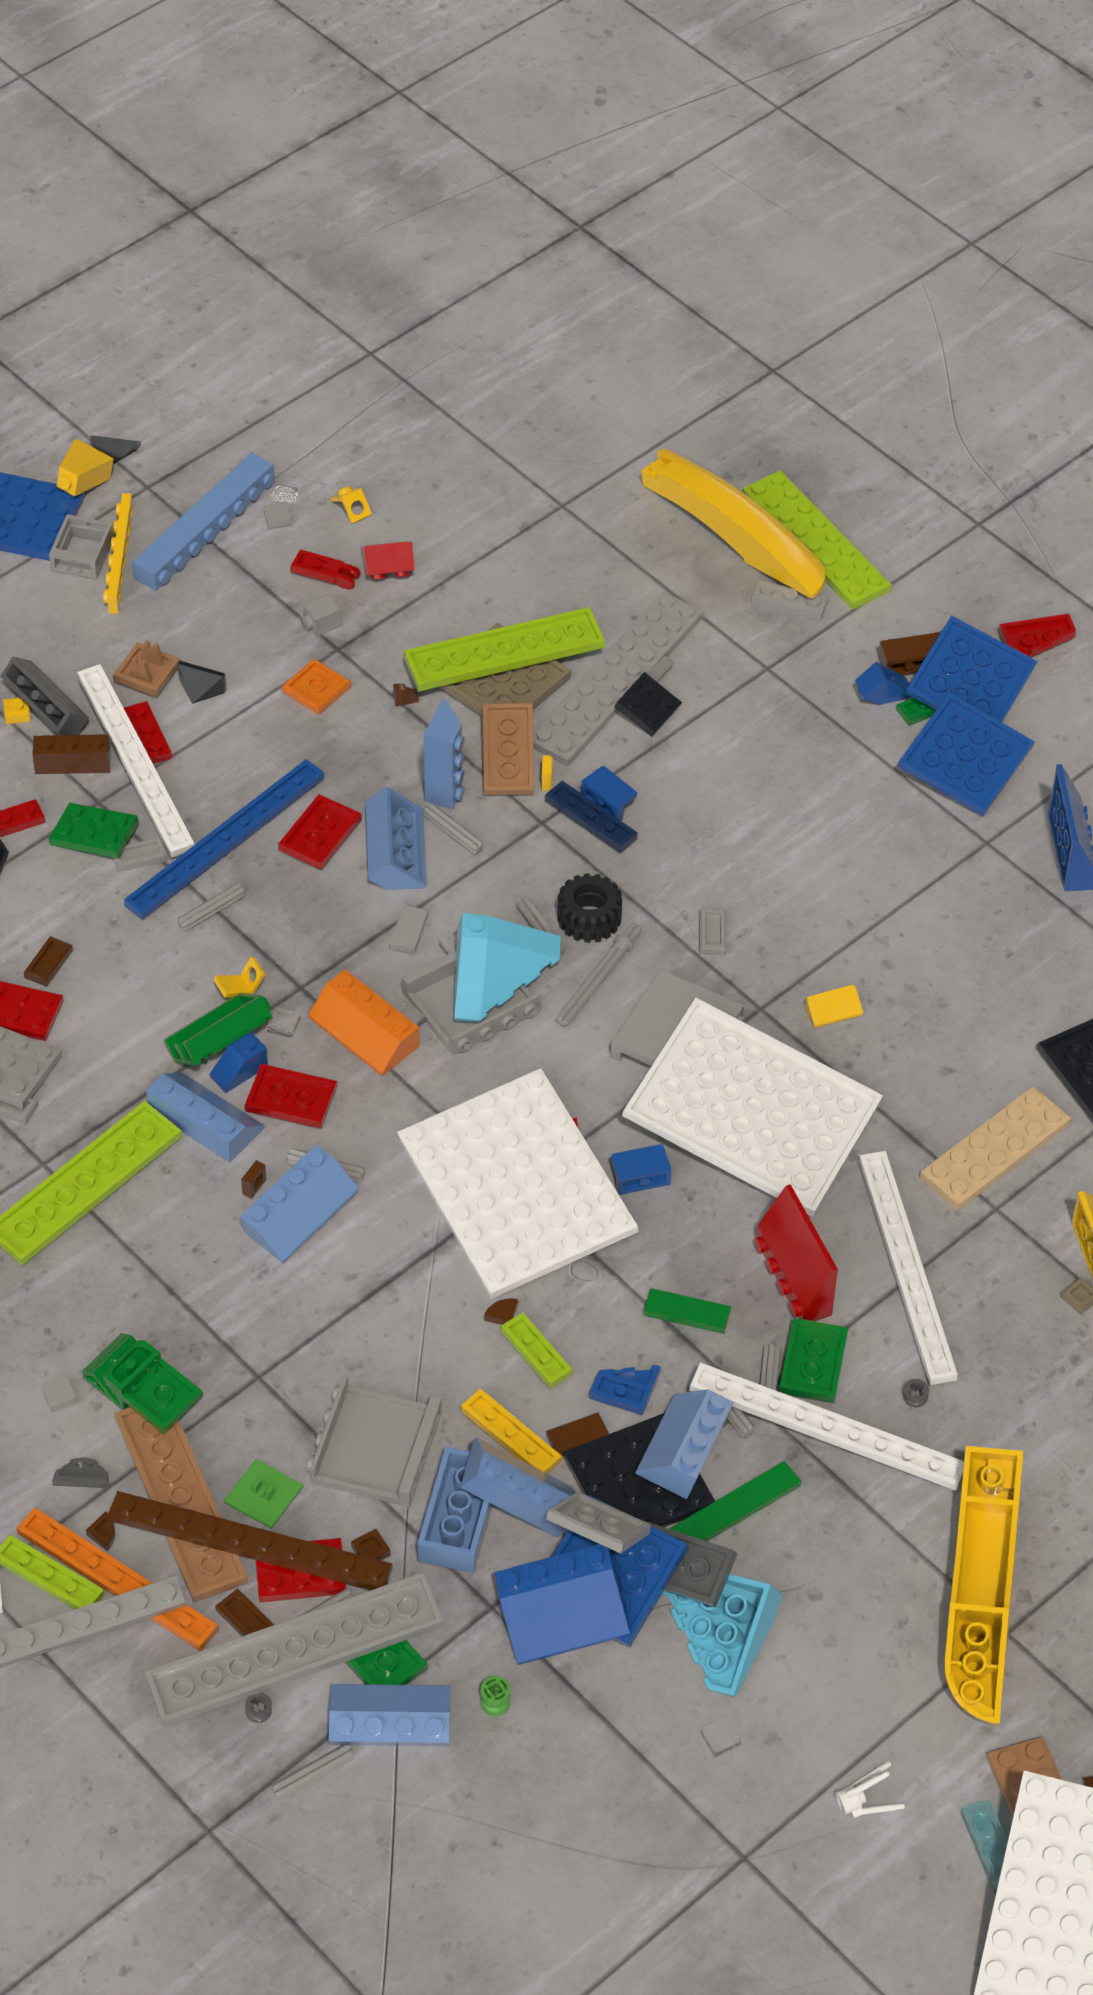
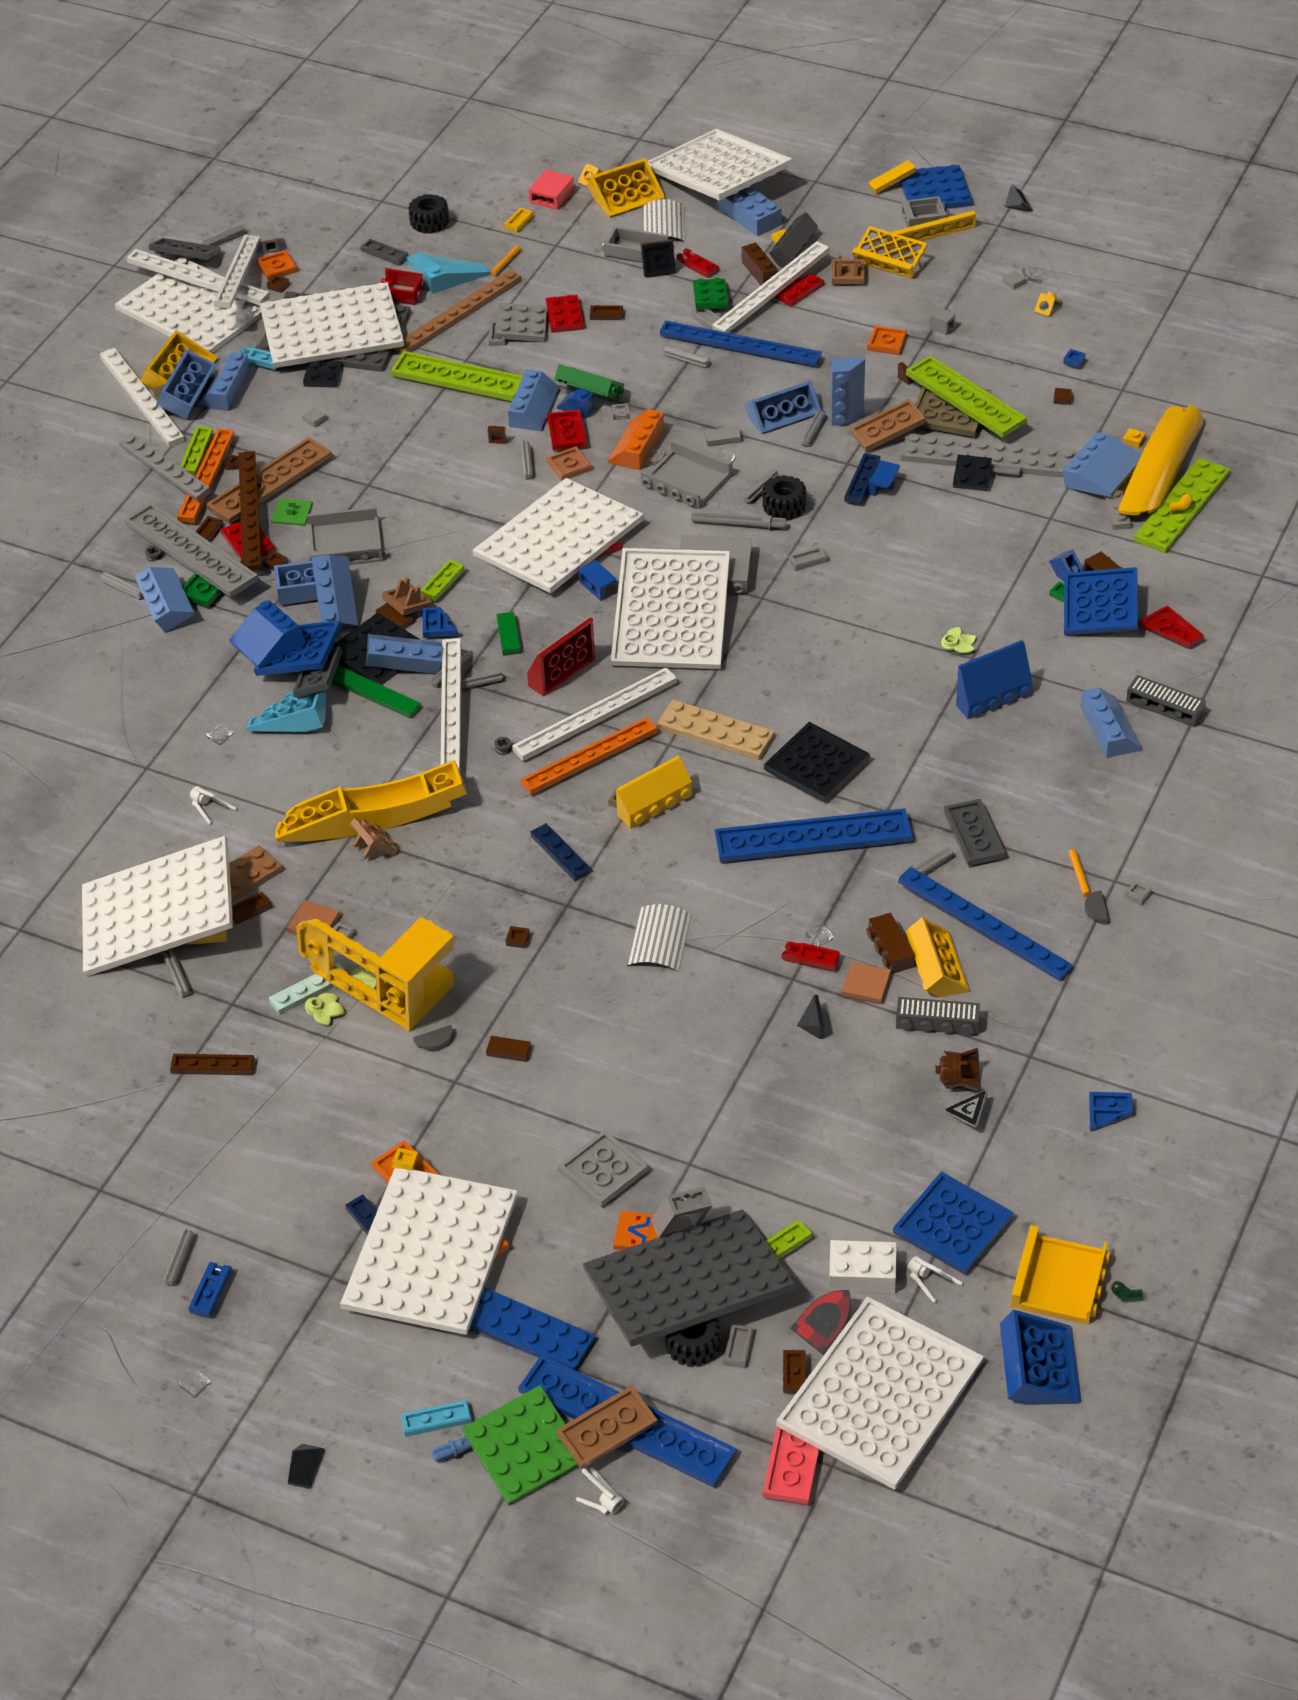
camera: 70 degrees right, 5 degrees down
(81, 1473) = (268, 442): dark grey tile -> none
(83, 468) = (981, 190): yellow slope -> none
(138, 1378) = (329, 436): green piece -> none
(159, 623) = (884, 261): none -> yellow fence
(201, 682) = (852, 294): black slope -> none
(203, 521) = (985, 251): medium blue brick -> none
(234, 984) = (632, 382): yellow bracket -> none
(298, 1204) = (487, 453): medium blue slope -> none
(320, 831) = (770, 376): red plate -> none
(325, 569) = (983, 310): red hinge -> none
(361, 1119) = (569, 463): none -> nougat tile
(388, 558) = (1010, 330): red slope -> none
(480, 522) = (1074, 358): none -> blue plate
(495, 961) = (709, 467): medium azure slope -> none
(497, 1702) = (200, 635): bright green wheel -> none
(501, 1311) = (465, 559): reddish brown tile -> none
(510, 1432) = (382, 582): yellow plate -> none
(543, 563) = (1062, 396): none -> reddish brown tile
(547, 764) = (883, 448): yellow tile -> none
(562, 1405) = (406, 598): none -> medium nougat plate
(598, 1522) = (314, 621): light grey tile -> none
(665, 531) = (1134, 438): none -> yellow plate
(714, 578) = (1101, 466): none -> medium blue slope
(813, 1360) = (500, 694): green plate -> none
(828, 527) = (1183, 503): none -> yellow arm
(833, 1006) = (781, 625): yellow slope -> none
(954, 843) = (957, 641): none -> yellowish green plate
(966, 754) = (1033, 616): blue plate -> none
(987, 1302) = (588, 756): none -> orange plate
(1056, 1597) = (374, 837): none -> medium nougat plate

